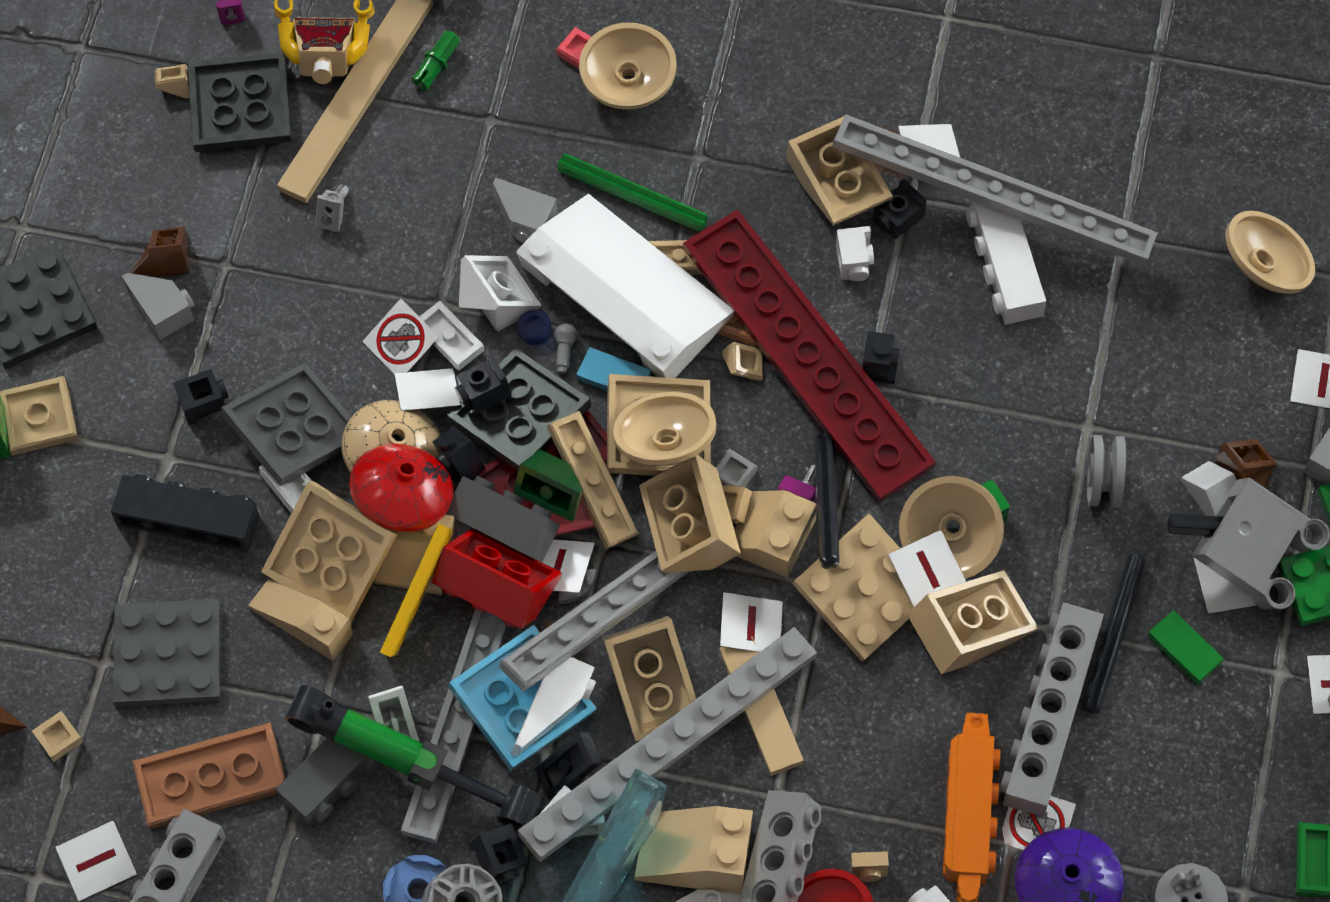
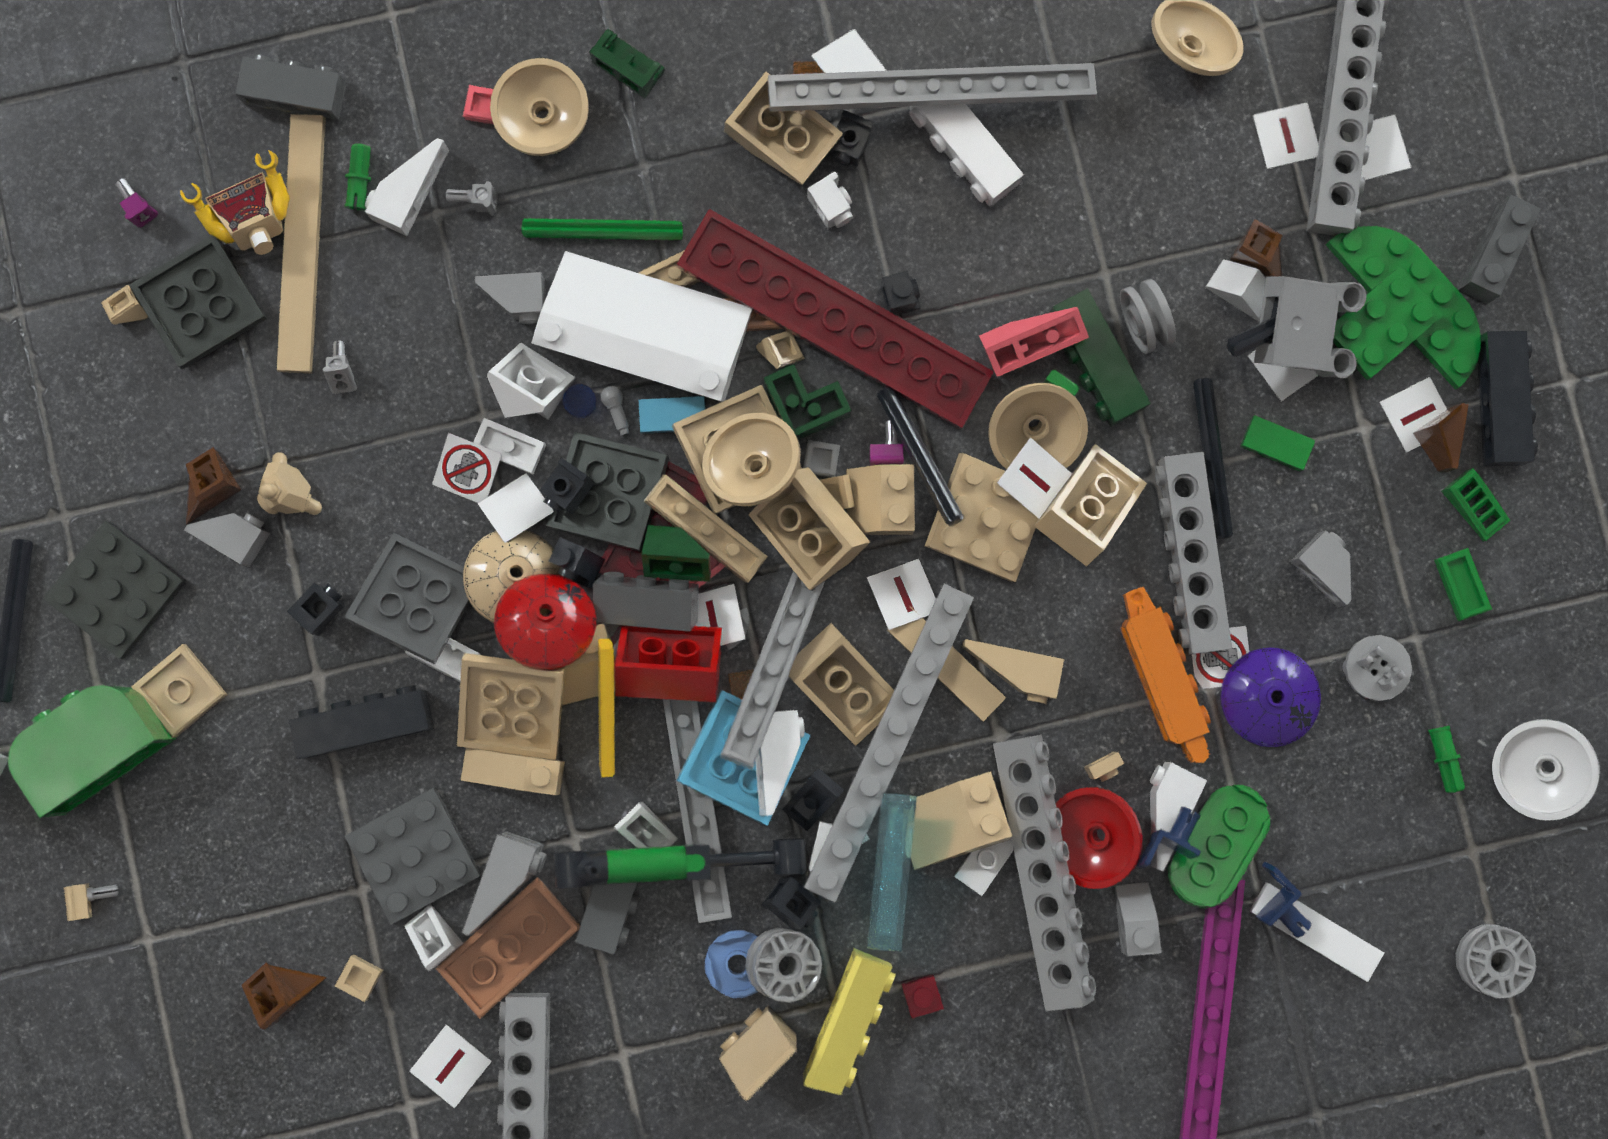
camera: 30 degrees left, 20 degrees up
(145, 731) = (432, 937): none -> white slope
(228, 285) = (285, 489): none -> tan rock
(241, 700) = (508, 869): none -> light grey slope
(472, 86) = (404, 191): none -> white slope
(537, 118) = (482, 197): none -> piece
(725, 66) = (626, 63): none -> dark green hinge
(739, 419) = (805, 411): none -> dark green brick
(835, 743) = (1023, 670): none -> tan slope
(985, 443) = (1032, 339): none -> coral slope
(1042, 493) = (1103, 364): none -> dark green brick
(1179, 774) = (1327, 566): none -> light grey slope

